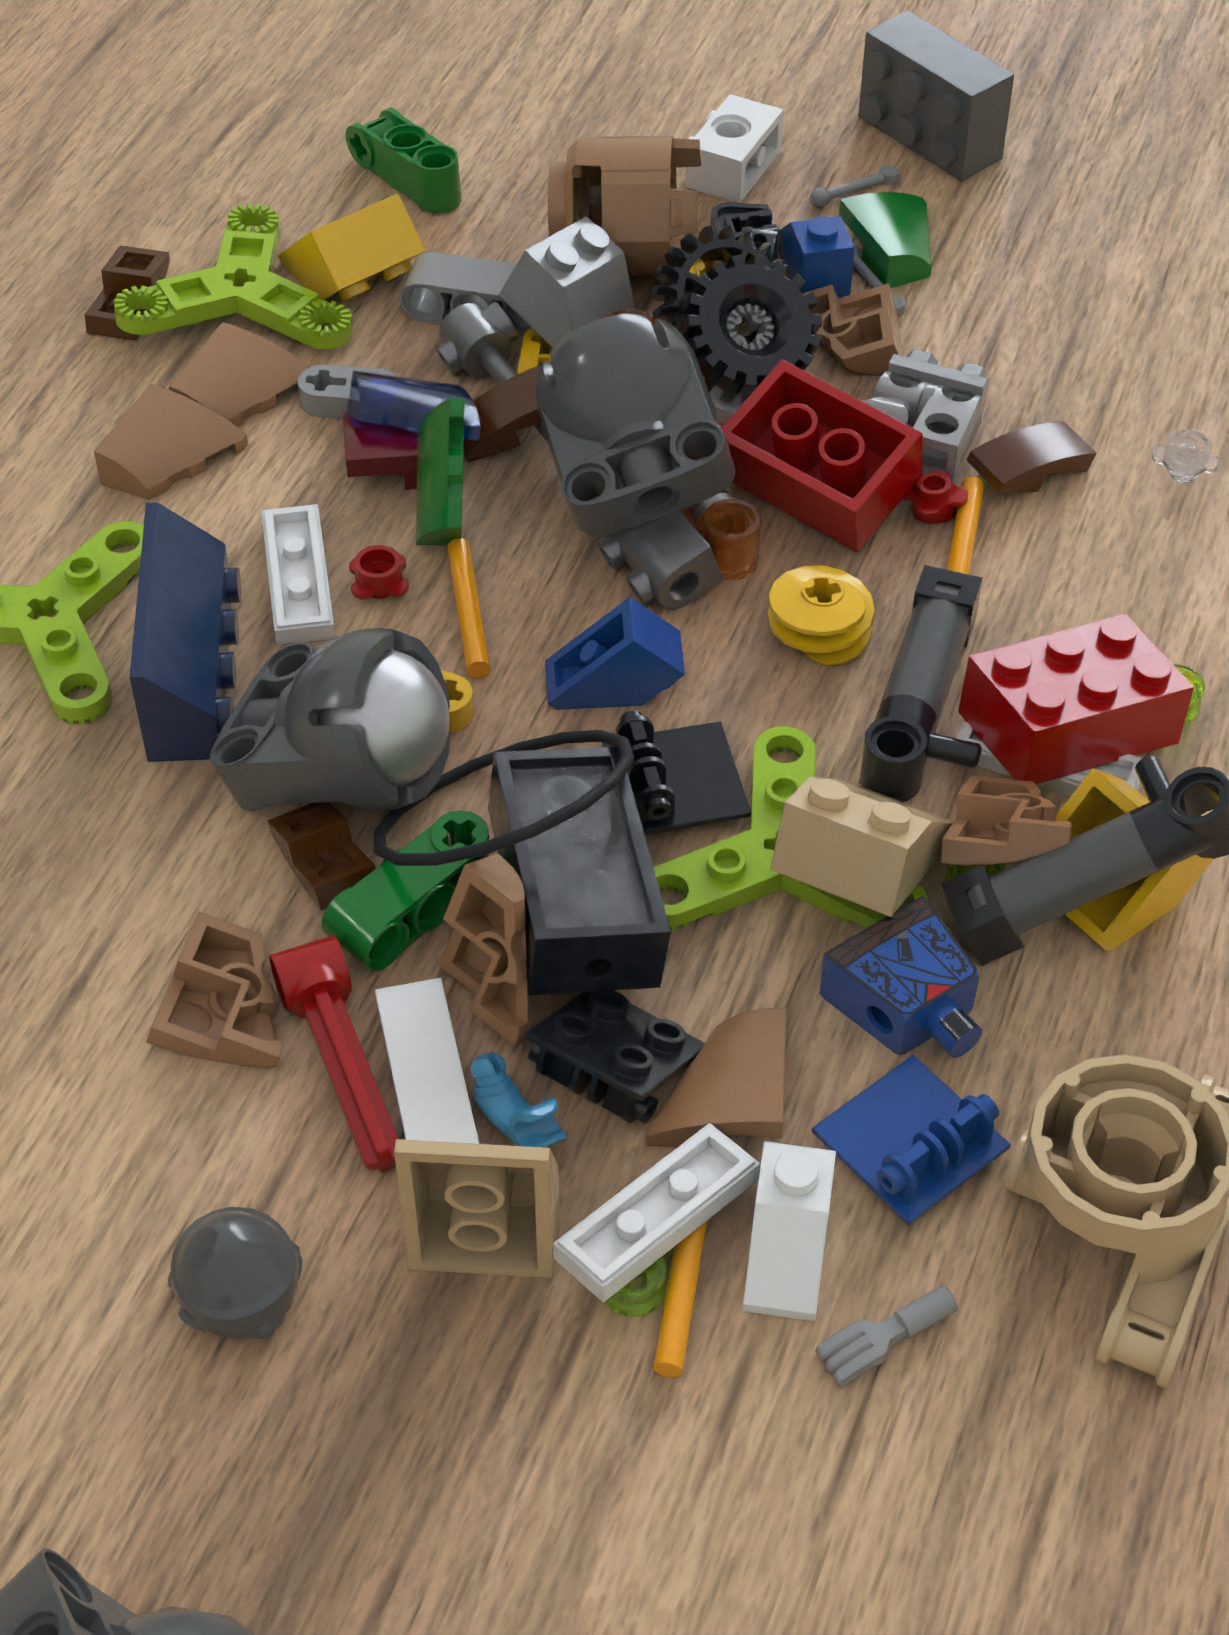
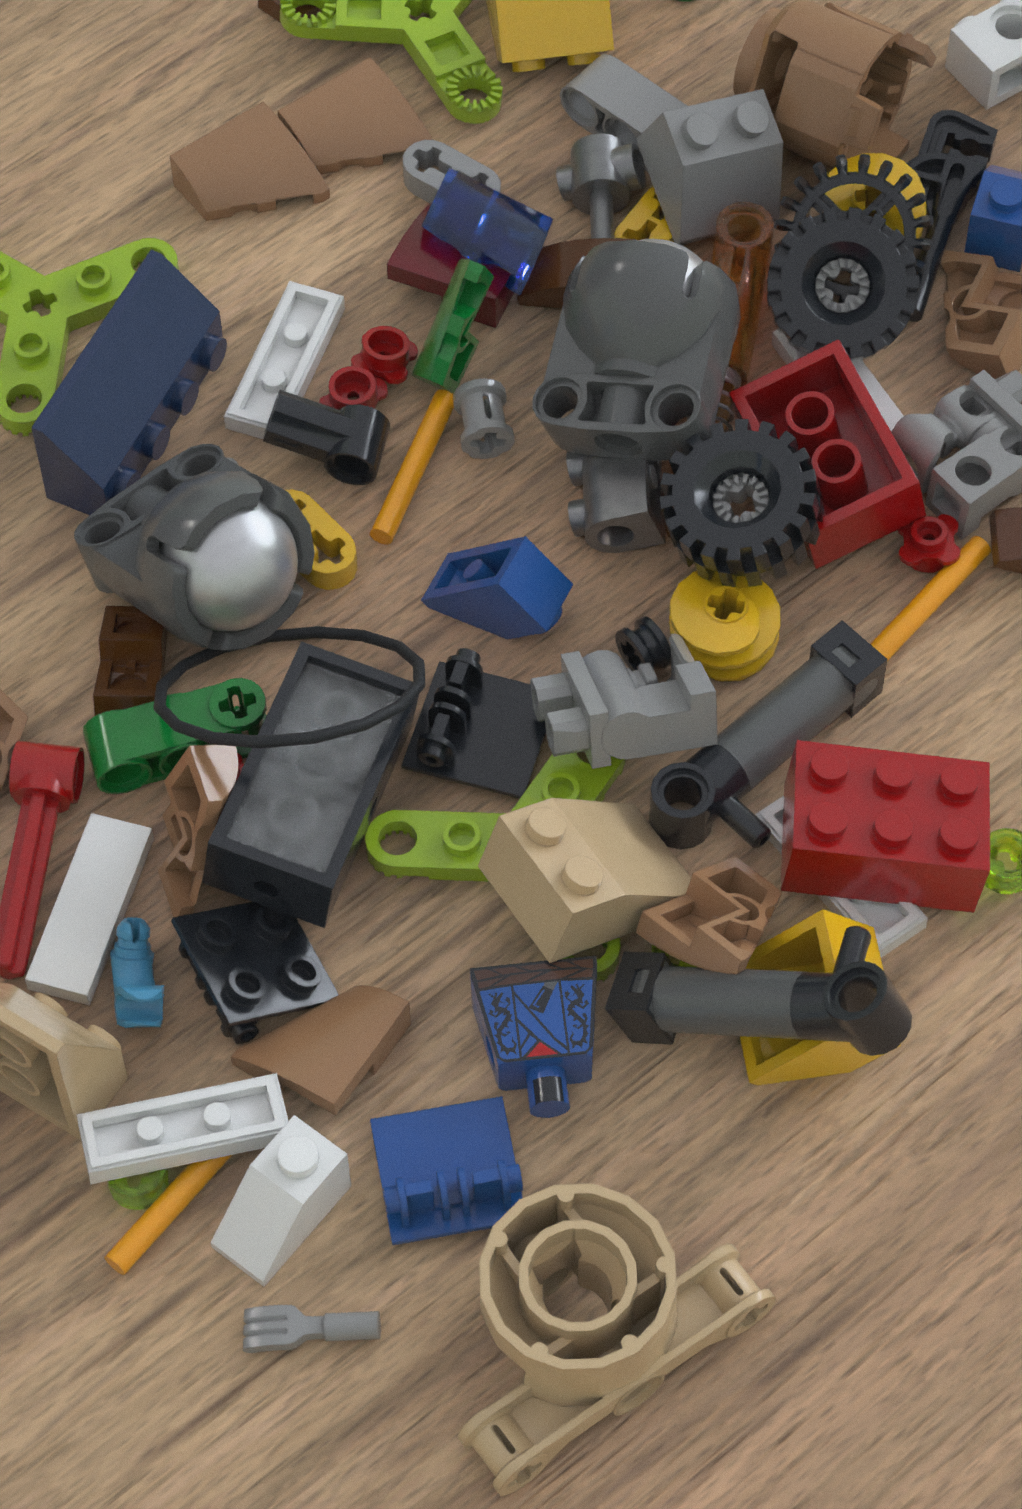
camera: 30 degrees right, 10 degrees up
(386, 527) = (386, 354): none -> red plate
(398, 602) = (344, 439): none -> black piece
(506, 545) = (483, 418): none -> light grey bush
(769, 658) = (643, 645): none -> black bush
(785, 469) = (729, 471): none -> black bush
(805, 698) = (624, 712): none -> light grey hips

